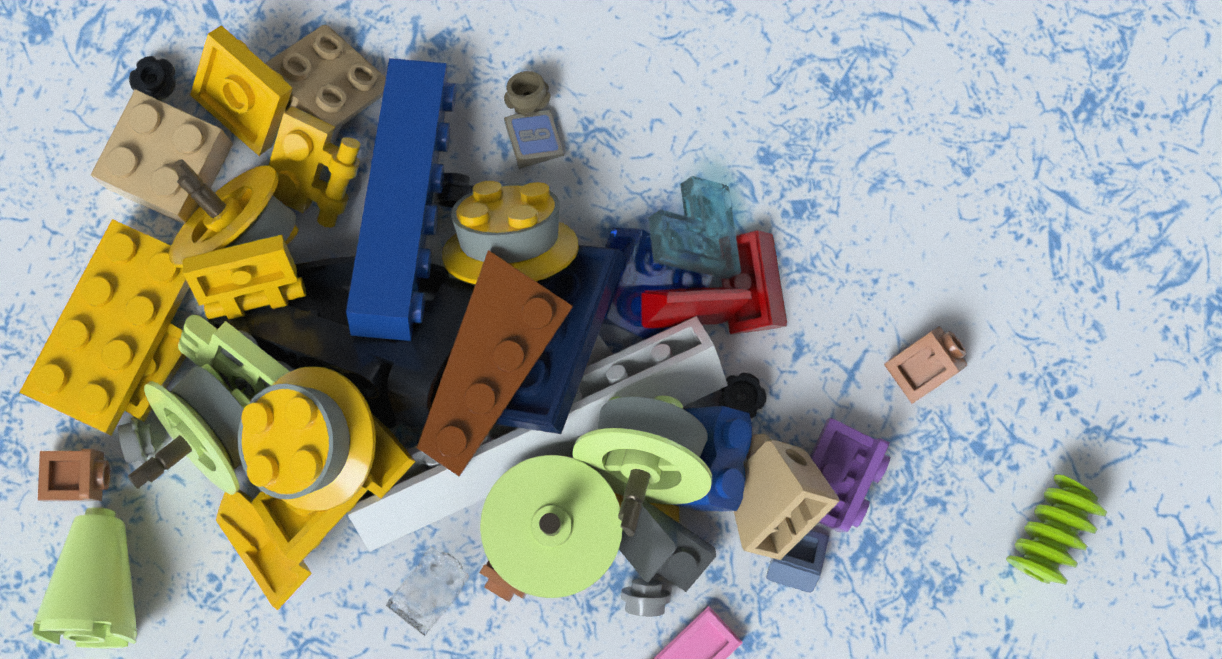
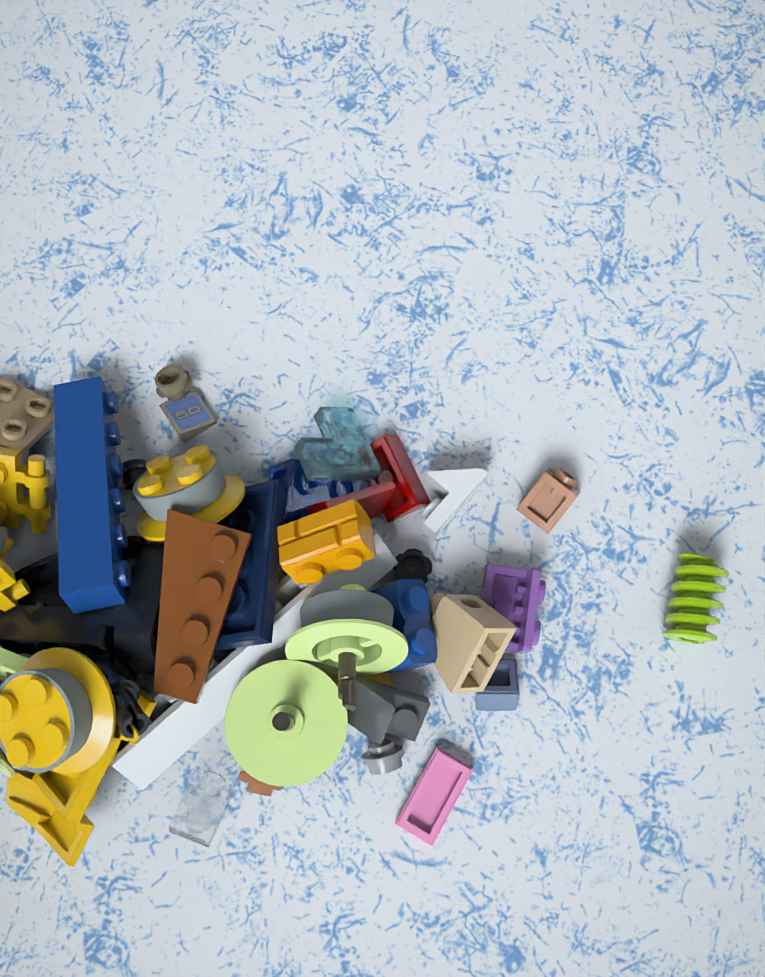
camera: 15 degrees left, 5 degrees down
(388, 441) = (125, 696): none -> black arm
(654, 340) = (326, 542): none -> light orange brick
(821, 319) = (456, 489): none -> white slope

